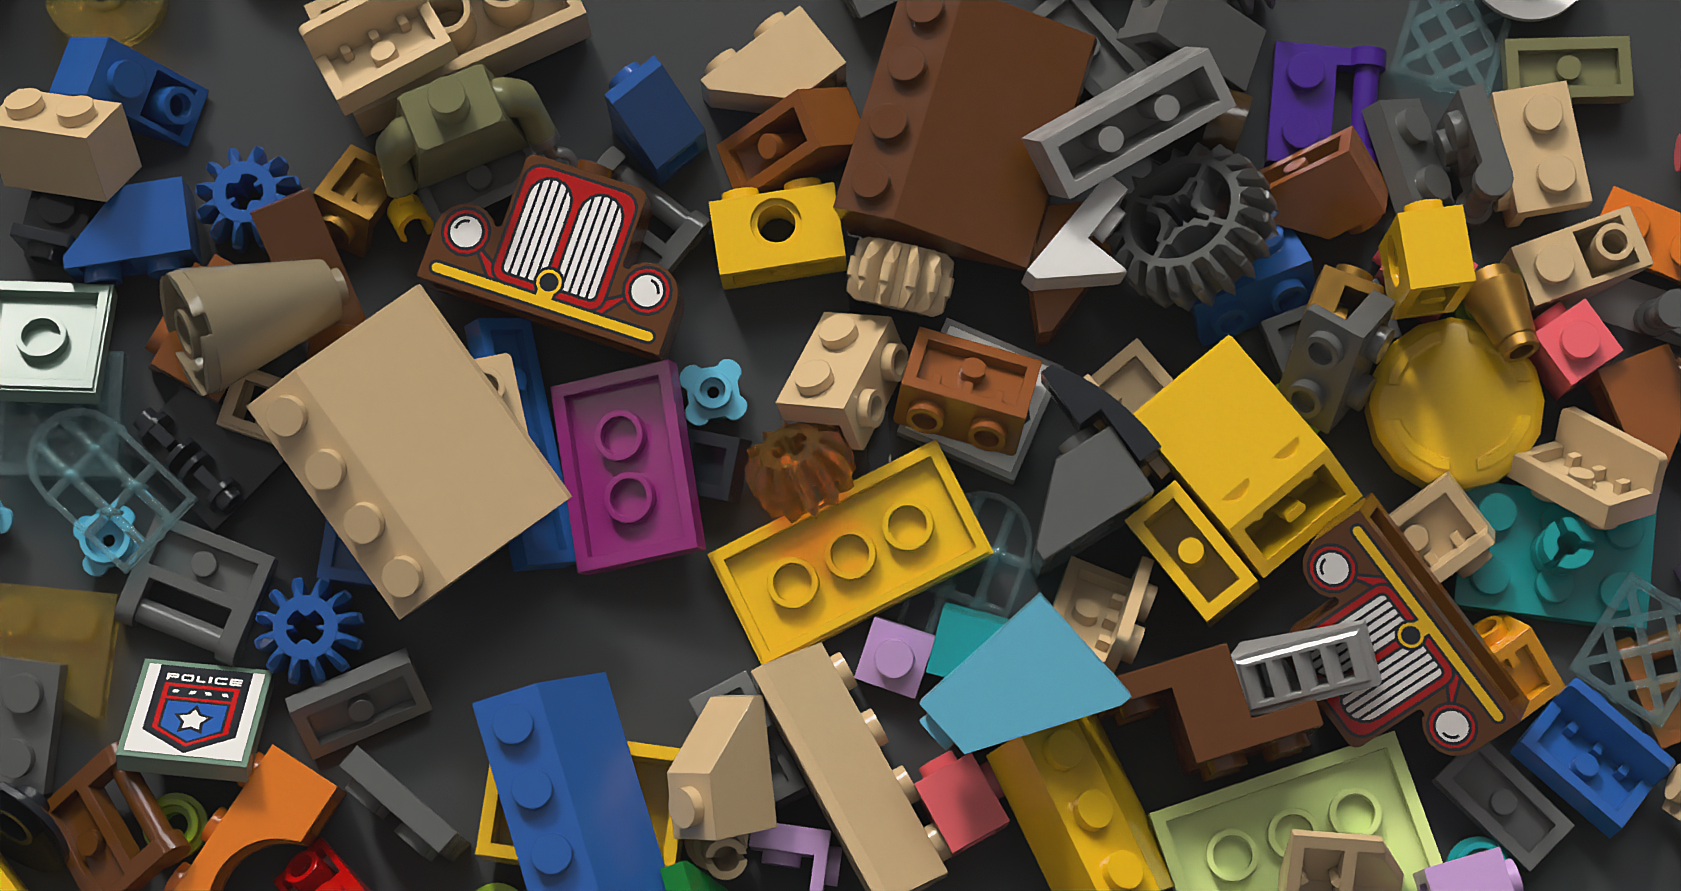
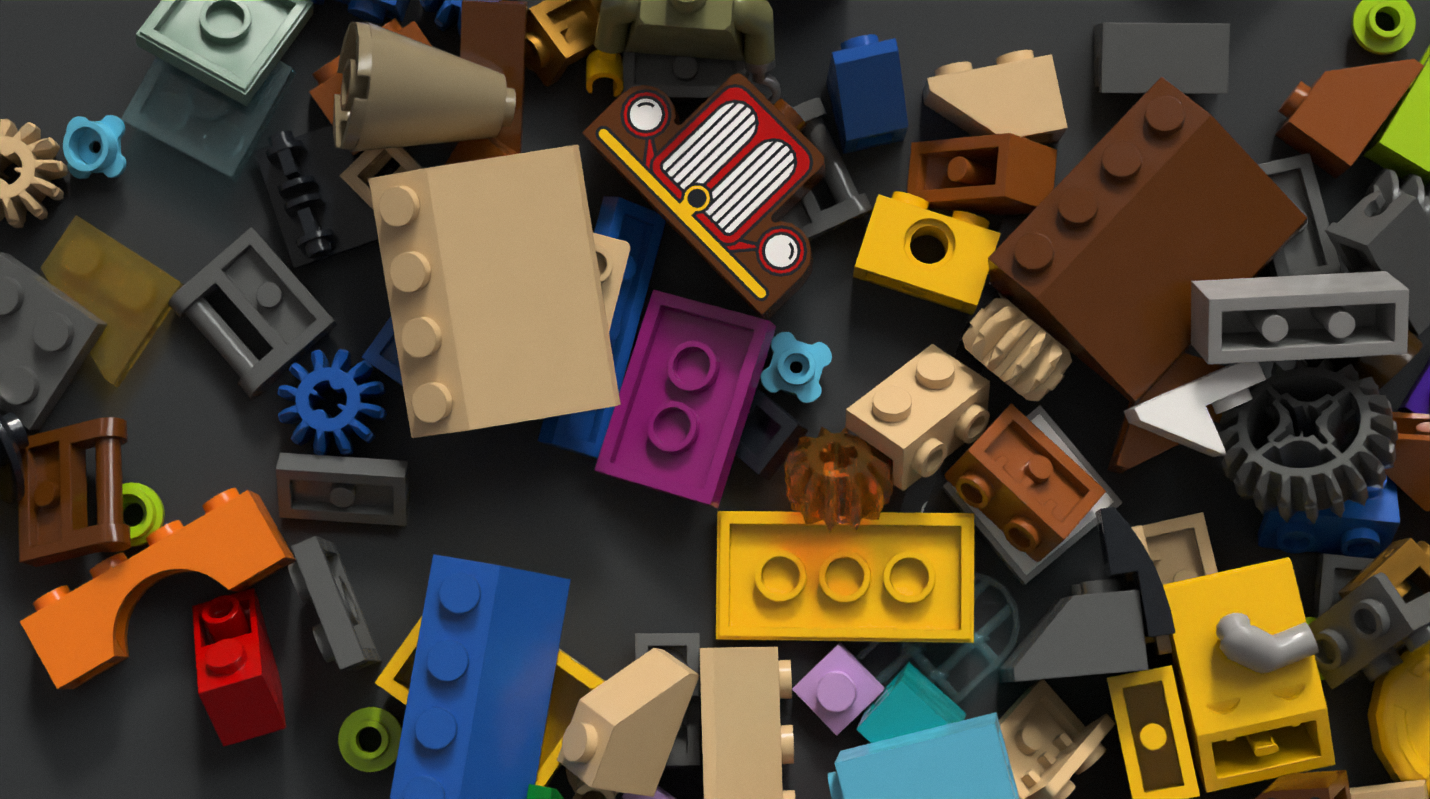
camera: 25 degrees right, 5 degrees up
(95, 561) = (185, 217): medium azure plate -> none
(131, 485) = (239, 192): clear light blue window -> none
(195, 720) = (192, 432): tile -> none
(1243, 424) = (1261, 650): none -> light grey arm

